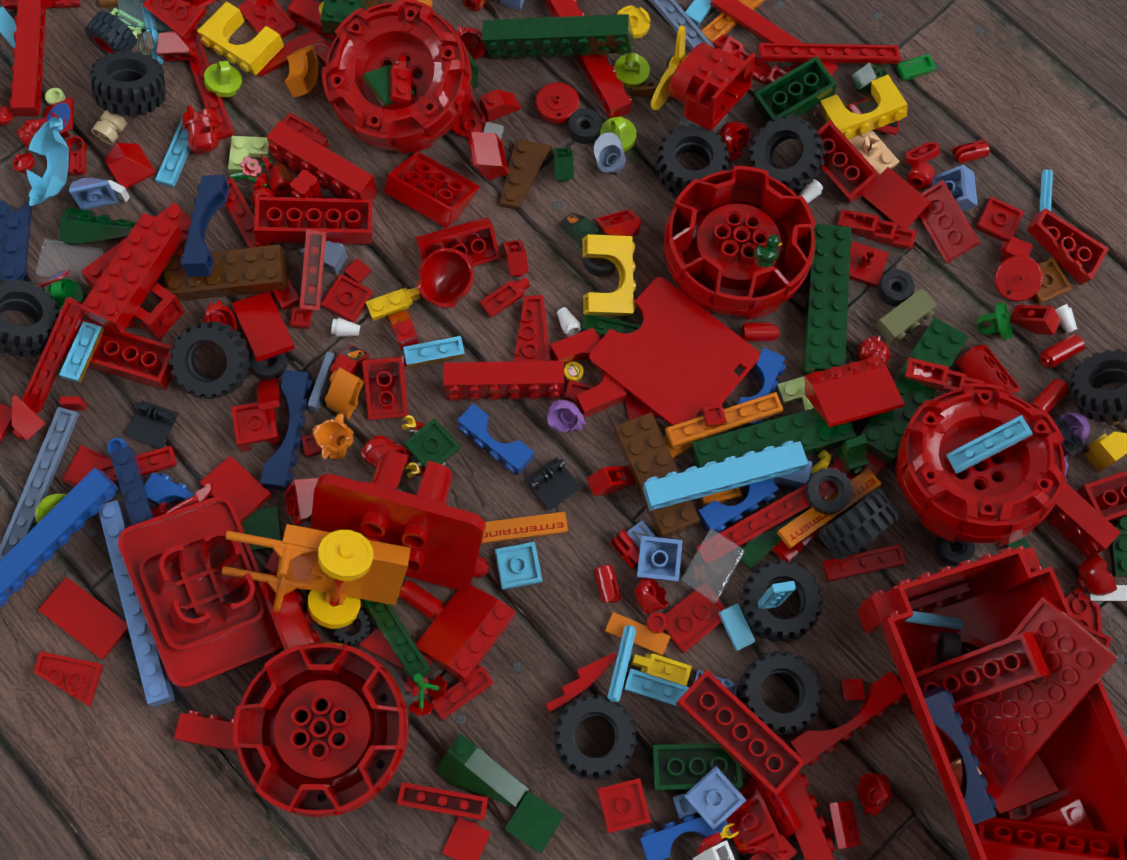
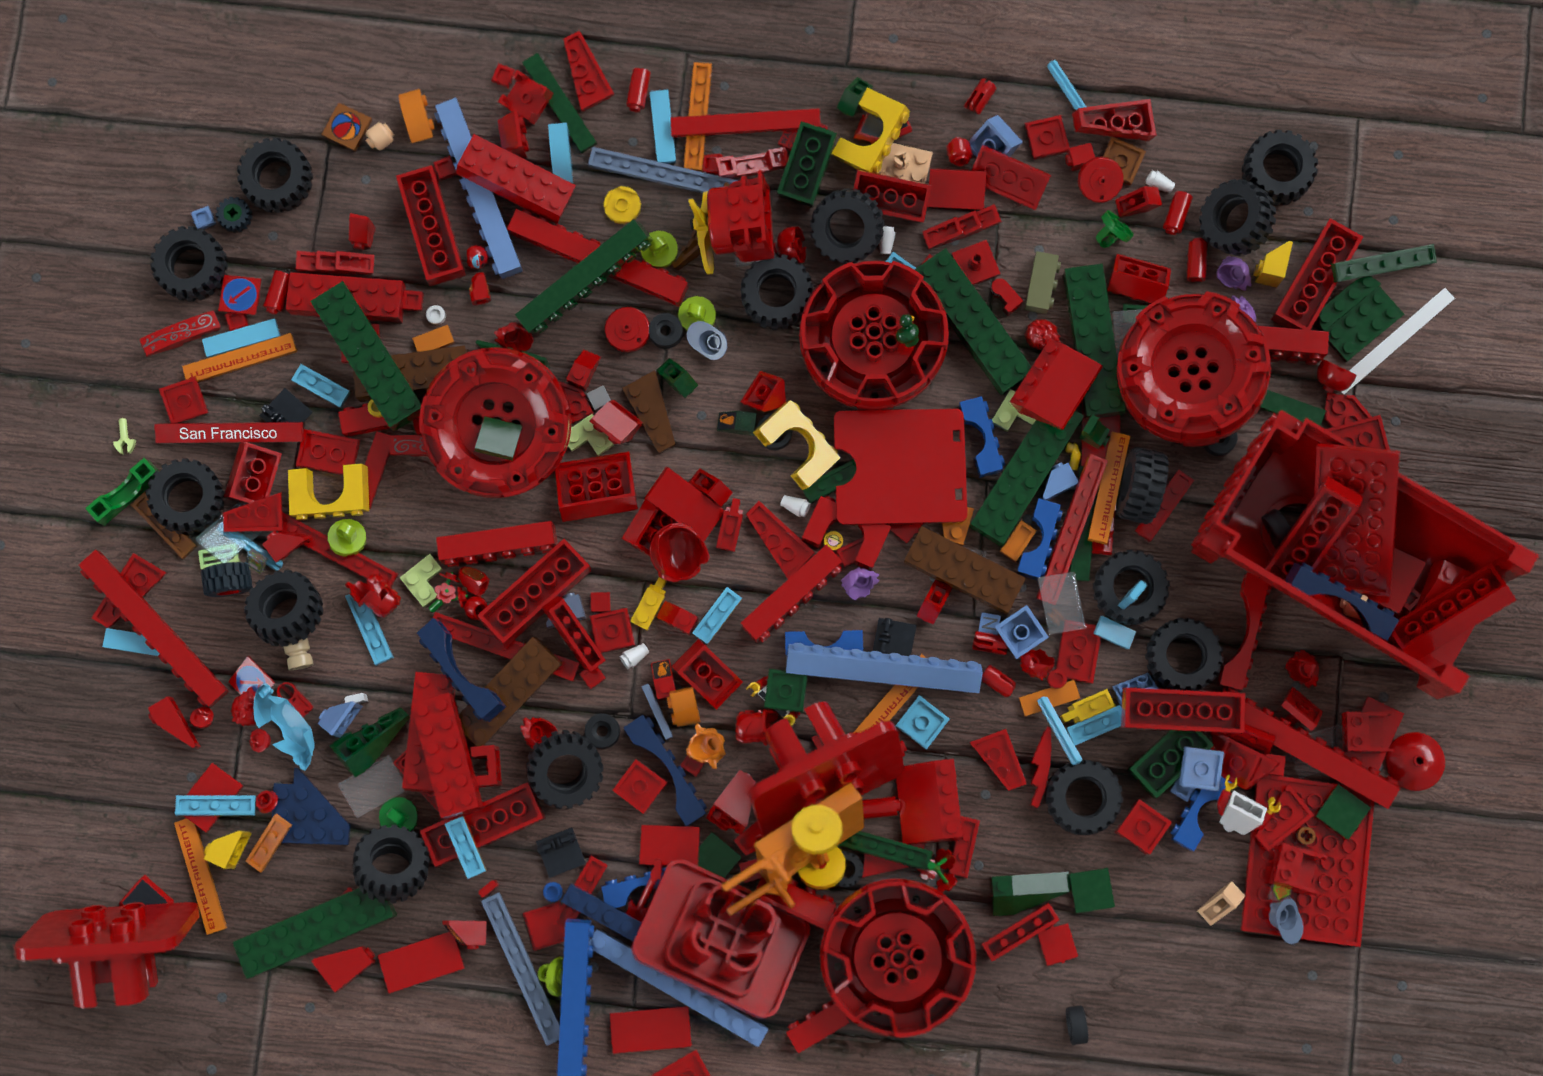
camera: 30 degrees left, 10 degrees up
(53, 355) = (444, 866): red tile -> none
(54, 96) = (226, 666): yellowish green tile -> none
(55, 277) = (379, 809): piece -> none
(129, 164) = (342, 670): red slope -> none
(263, 326) = (575, 708): red tile -> none
(268, 394) = (630, 756): red tile -> none
(303, 71) = (405, 476): orange brick -> none
(305, 128) = (451, 525): red hinge -> none
(305, 186) = (504, 573): red brick -> none
(400, 81) = (506, 427): red hinge -> none
(457, 147) = (585, 432): none -> yellowish green plate
(484, 248) = (684, 503): none -> red tile
(524, 494) = (884, 668): none -> medium blue brick
(555, 647) = (1001, 758): none -> red wing
(713, 415) = (970, 490): red tile -> none
(724, 475) = (1017, 532): medium azure brick -> none
(735, 416) = (979, 486): orange tile -> none
(759, 331) = (944, 390): red arm -> none
(829, 53) = (803, 104): red tile -> none
(844, 490) = (1110, 467): black tyre -> none
(852, 690) = (1230, 607): red tile -> none
(869, 304) = (1007, 295): none -> red leg
(898, 277) = (1020, 255): black tyre -> none
(916, 67) = (878, 54): green tile -> none
(923, 153) = (944, 132): red plate -> none
(936, 376) = (1112, 317): red slope -> none
(936, 620) = (1248, 510): medium azure axle -> none
(989, 444) = (1189, 351): medium azure tile -> none
(1072, 443) = (1234, 288): black hinge -> none

